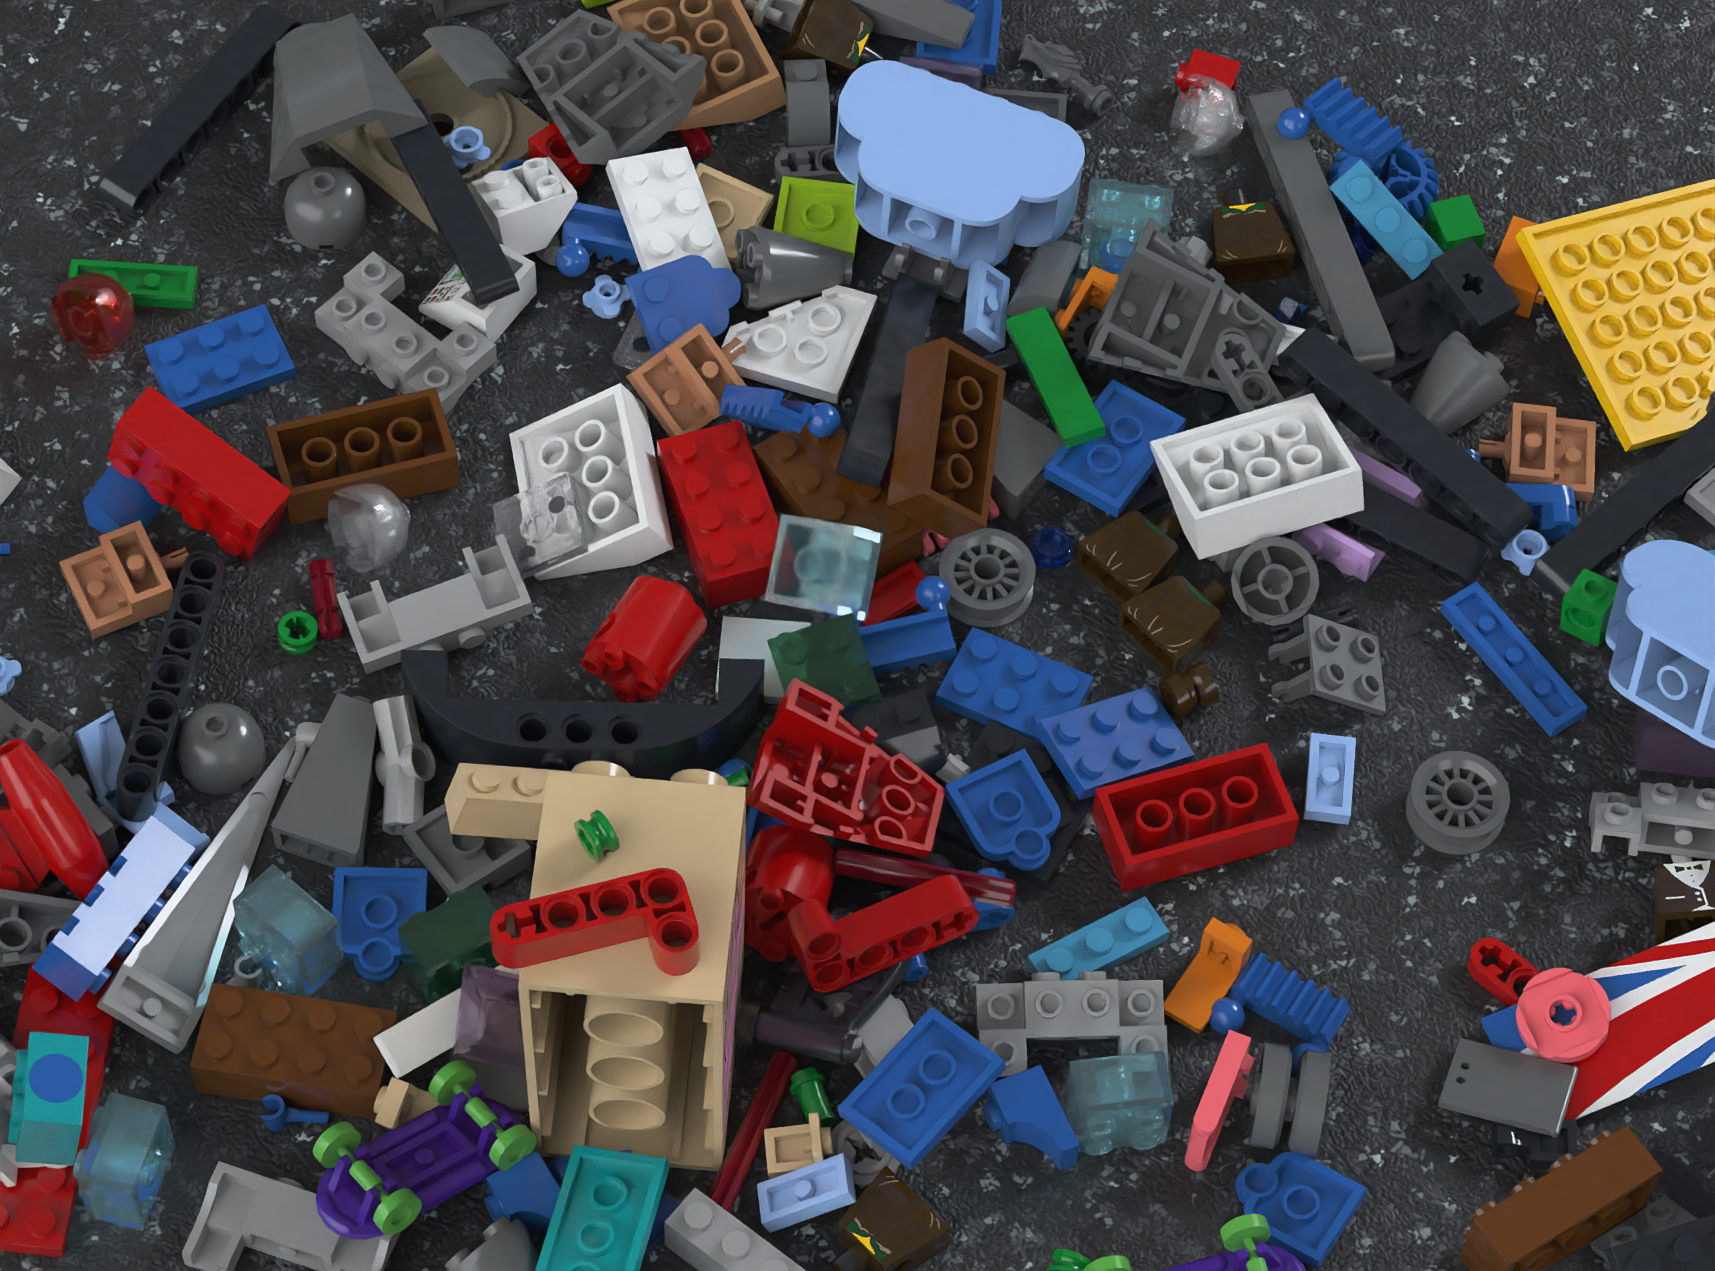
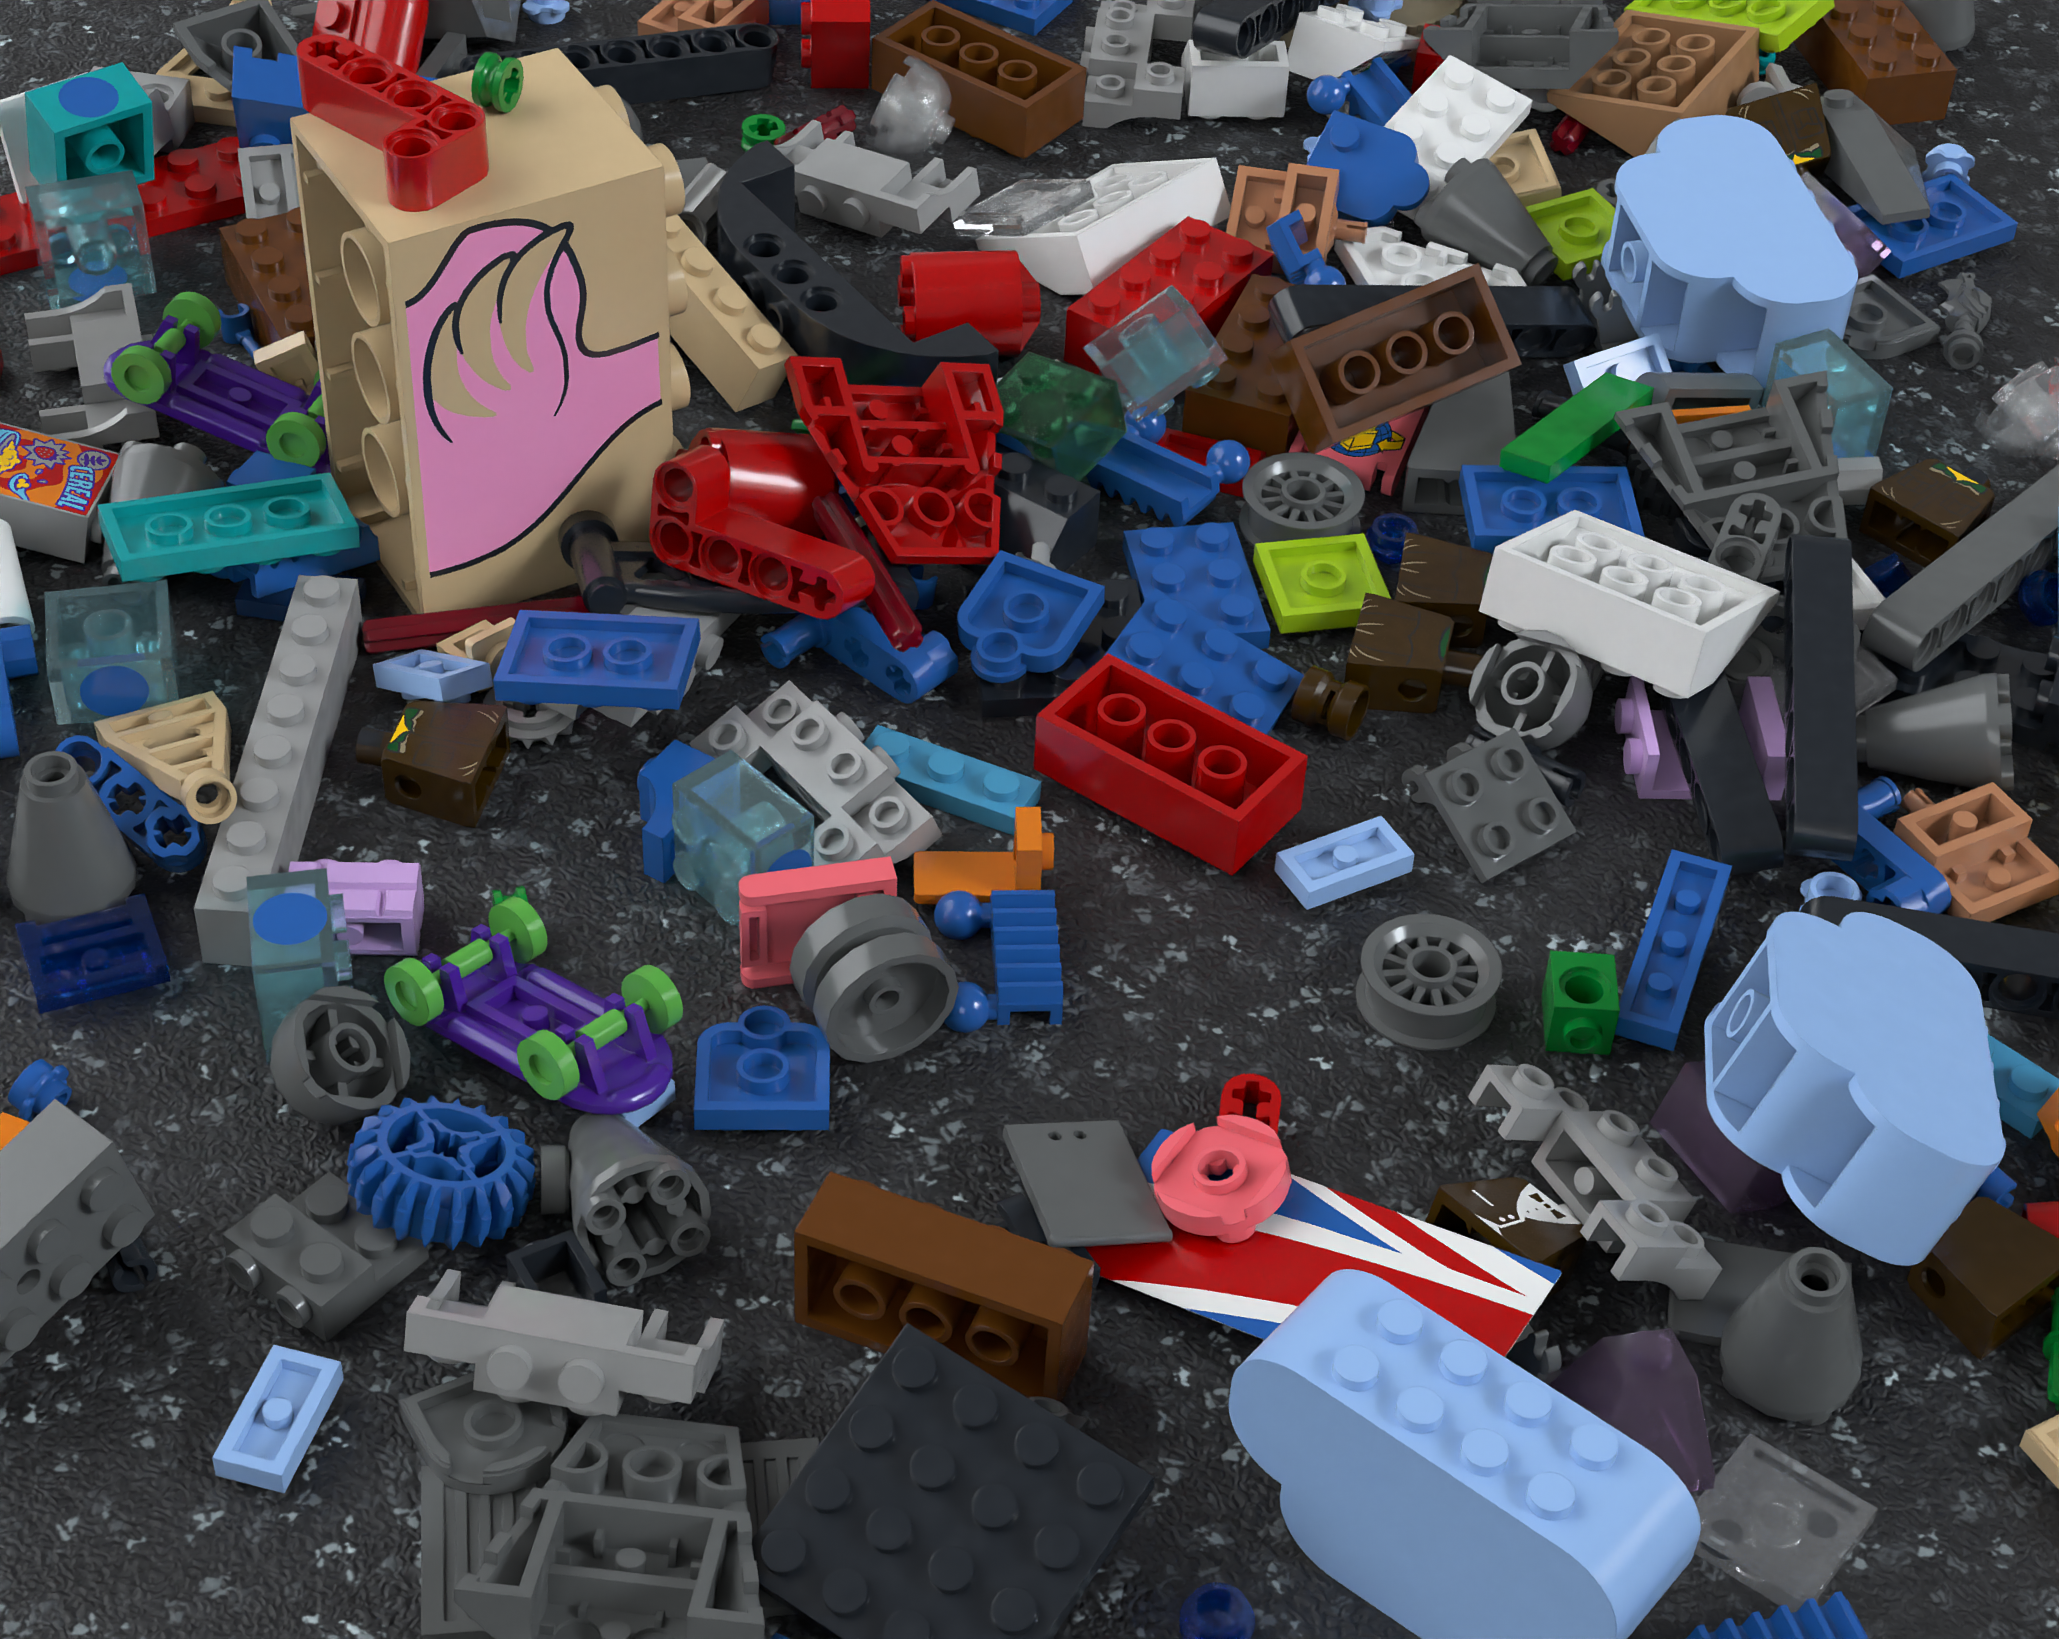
camera: 55 degrees right, 15 degrees down
(1068, 617) = (1318, 581): none -> lime plate
(1530, 722) = (1580, 1002): none -> green brick

